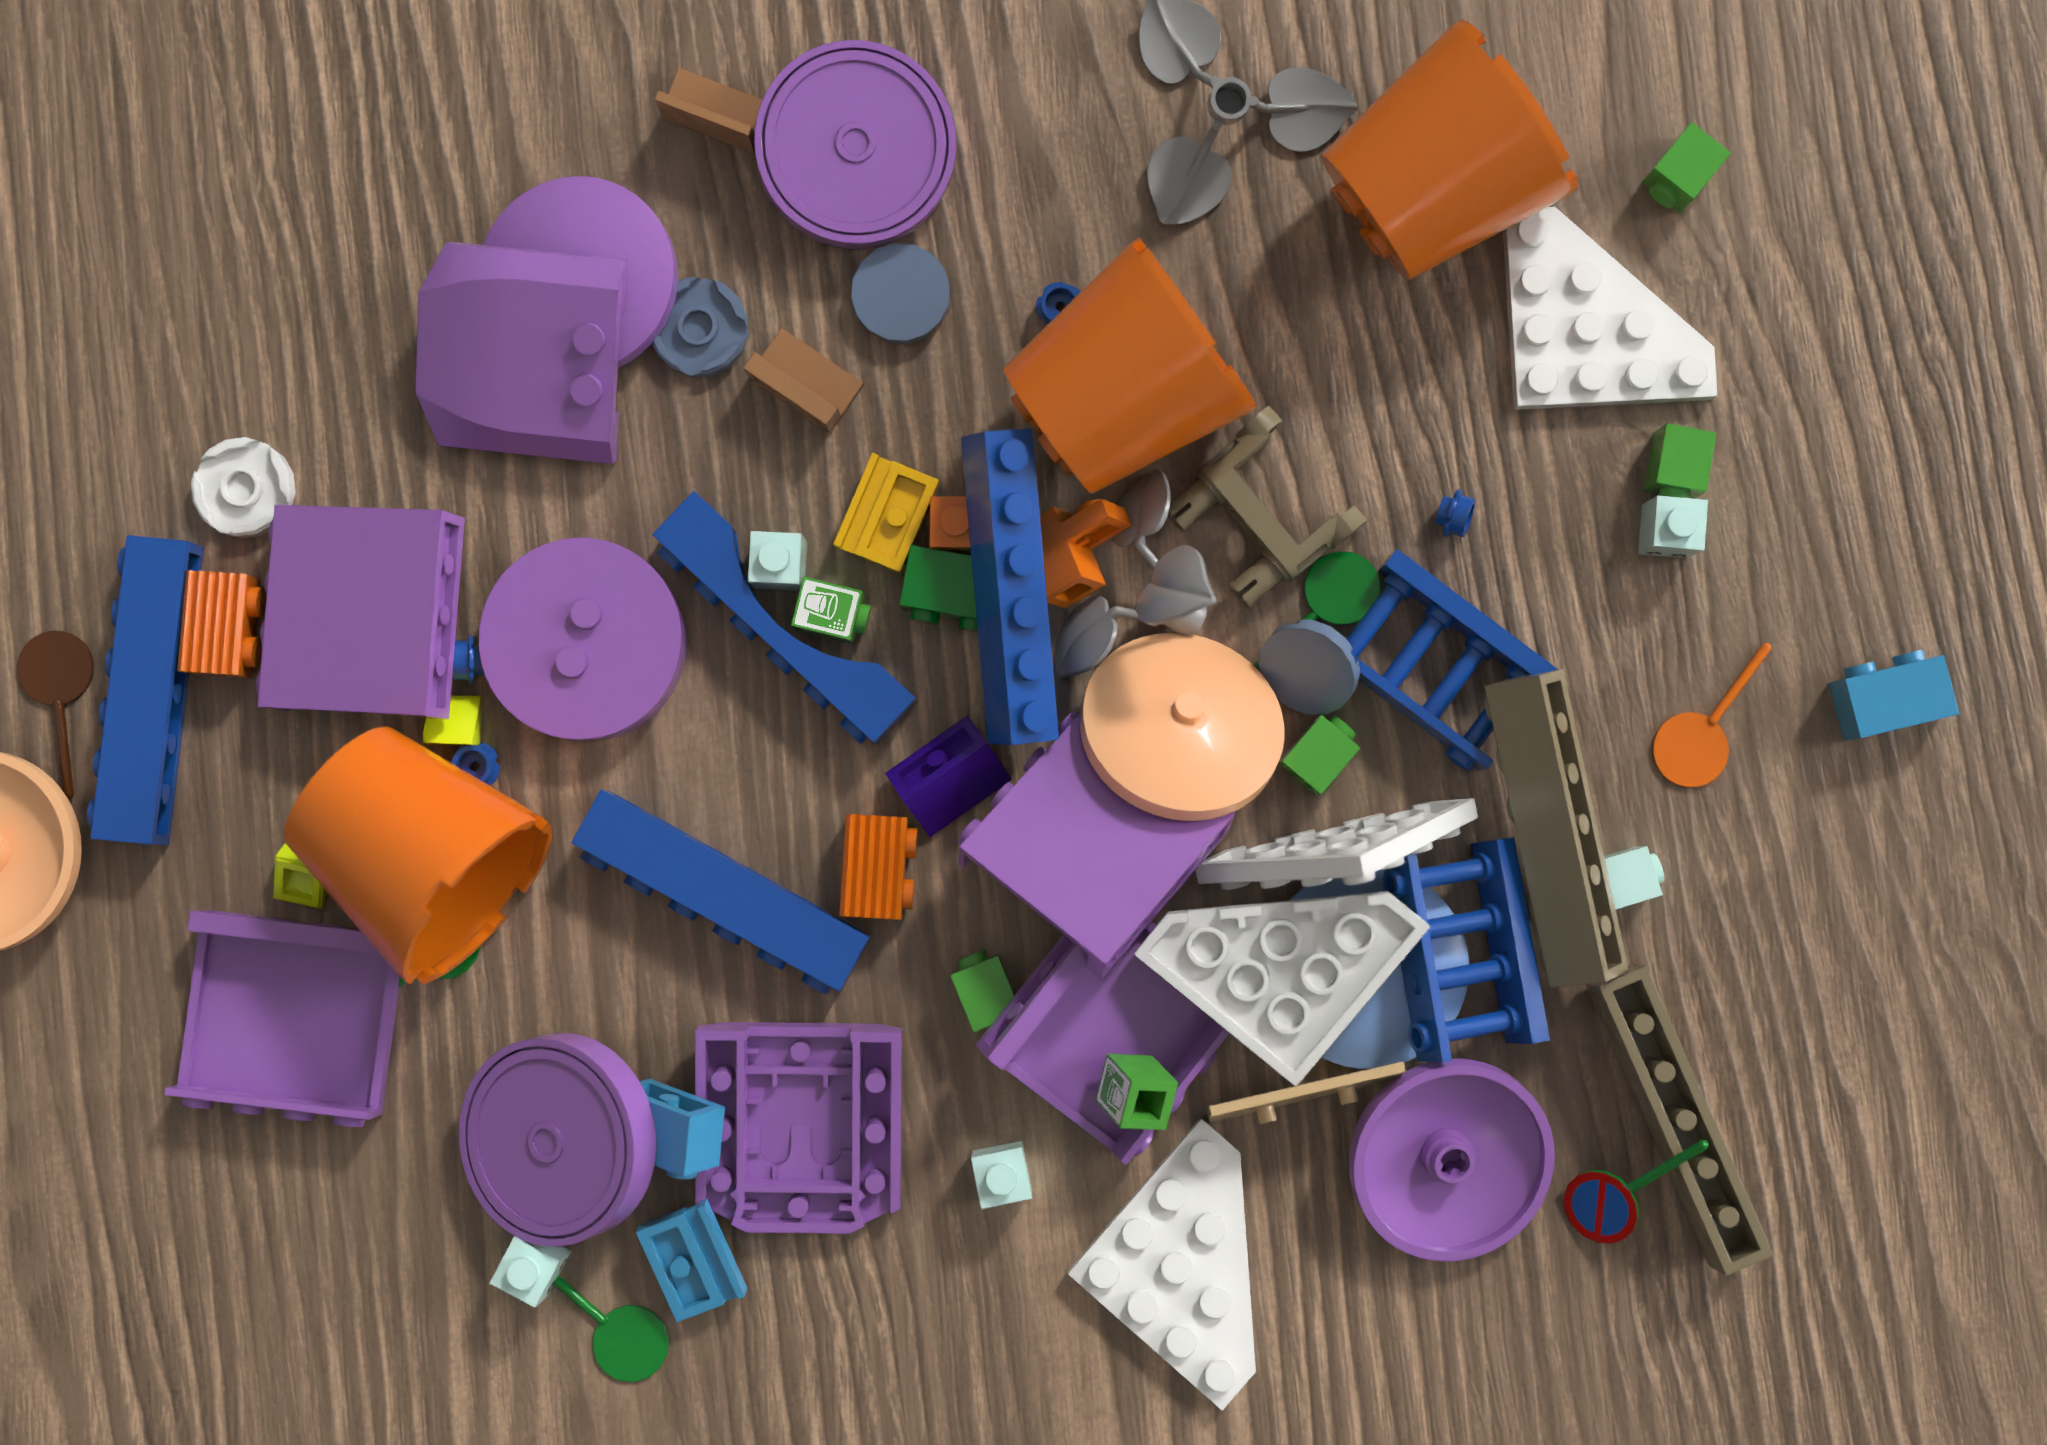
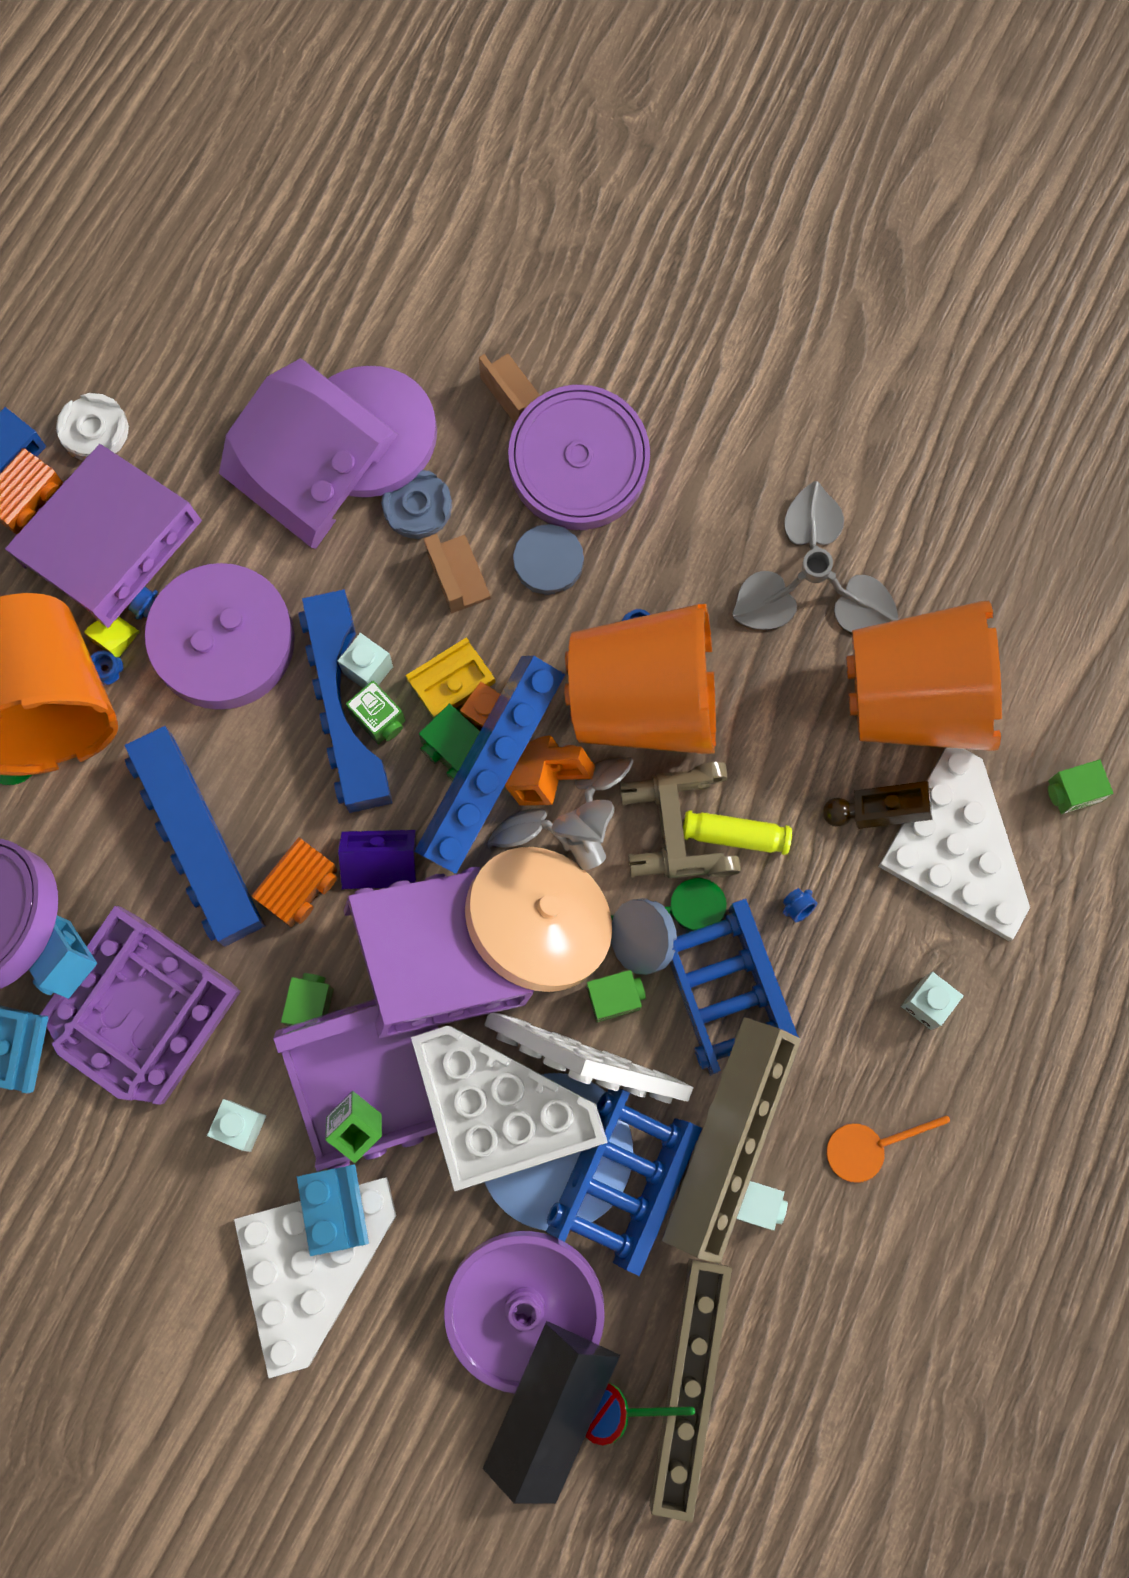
camera: 30 degrees right, 10 degrees down
(1172, 1193) = (332, 1210): none -> dark azure plate
(1334, 476) = (737, 832): none -> neon yellow axle
(1343, 1085) = (433, 1192): tan piece -> none
(1478, 338) = (882, 806): none -> dark brown plate
(1547, 1247) = (549, 1416): none -> black slope
(1680, 461) = (963, 963): bright green brick -> none
(1894, 697) = (1010, 1205): dark azure brick -> none

